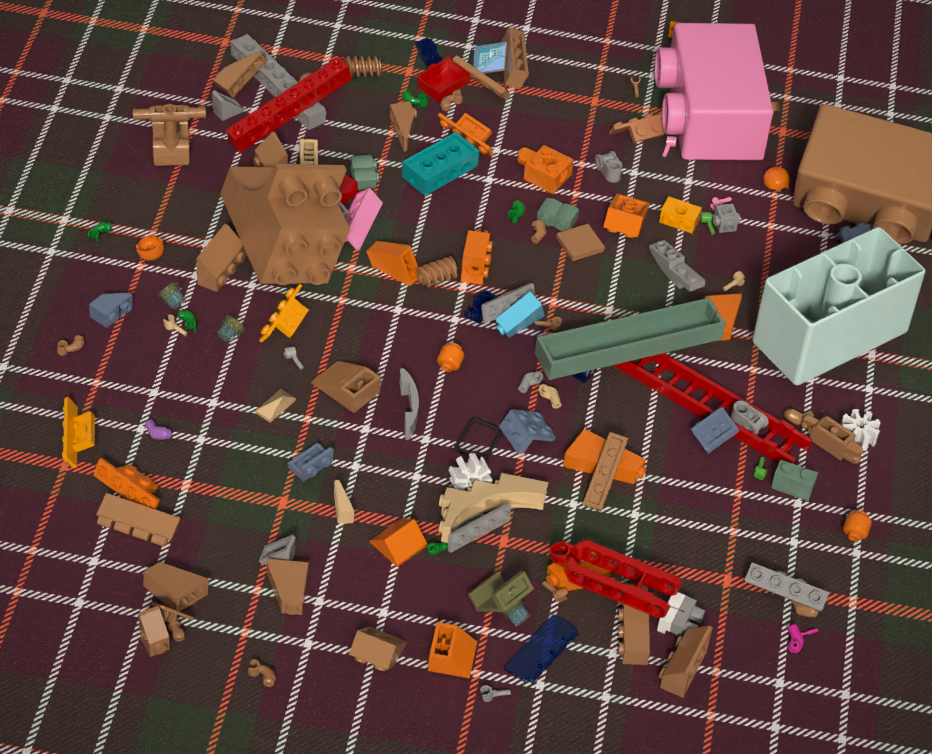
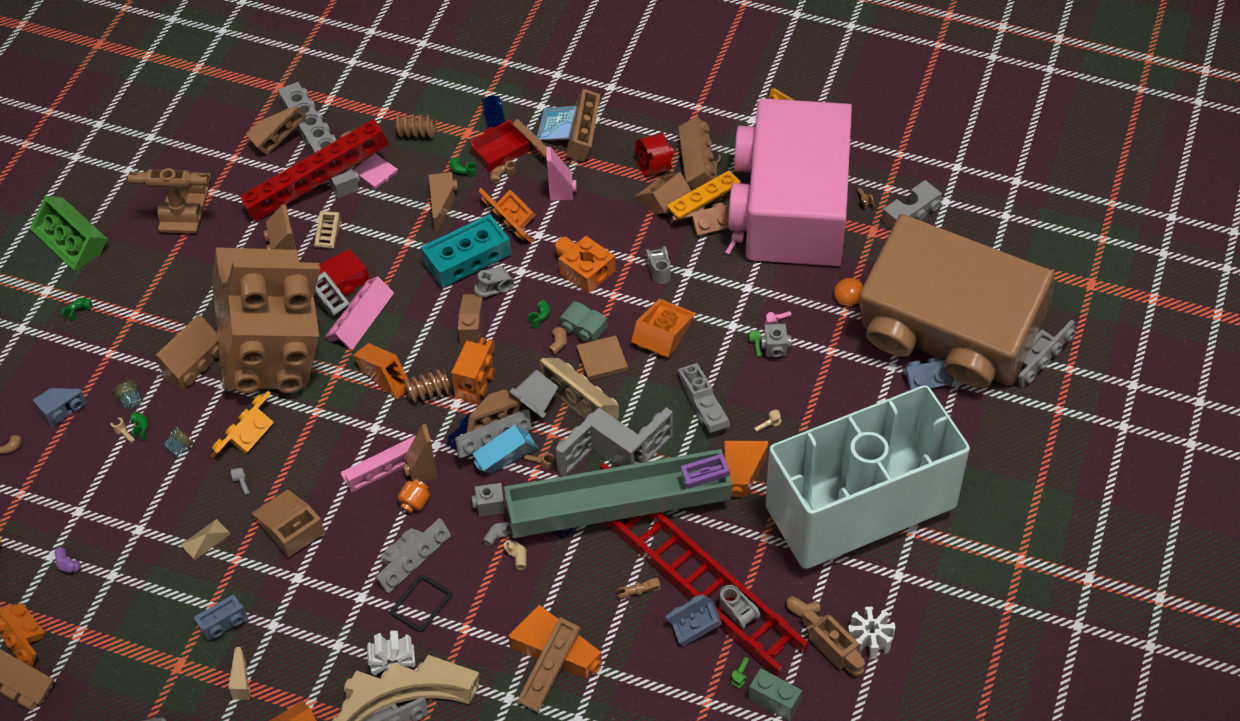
camera: 15 degrees right, 5 degrees up
(71, 170) = (67, 232): none -> bright green slope
(150, 248) = (122, 333): orange hair -> none
(225, 106) = (254, 165): light grey slope -> none
(337, 105) = (375, 171): none -> bright pink piece
(363, 171) = (380, 254): sand green brick -> none
(408, 387) = (348, 573): light grey slope -> none
(416, 335) = (377, 466): none -> bright pink panel
(452, 323) = (420, 457): none -> medium nougat slope
(458, 218) = (470, 318): none -> medium nougat slope
(459, 401) = (409, 553): none -> light grey bracket
(470, 188) = (493, 282): none -> light grey piece
(503, 283) = (493, 408): none -> medium nougat slope
(506, 104) = (559, 177): none -> bright pink slope
(516, 355) = (488, 499): none -> light grey brick
(523, 427) = (476, 594): sand blue bracket -> none
(535, 269) = (535, 392): none -> light grey container
(569, 270) = (576, 389): none -> tan slope
(583, 78) = (653, 154): none -> red brick
(599, 109) = (663, 192): none -> medium nougat slope
(611, 301) = (613, 440): none -> light grey bracket
(620, 76) = (696, 152): none -> medium nougat brick
(636, 107) = (702, 195): none -> light orange bracket
(669, 410) = (648, 586): none -> medium nougat piece
(680, 214) = (724, 332): light orange brick -> none
(703, 316) = (705, 474): none -> medium lavender tile
(803, 116) = (923, 199): none -> light grey arch

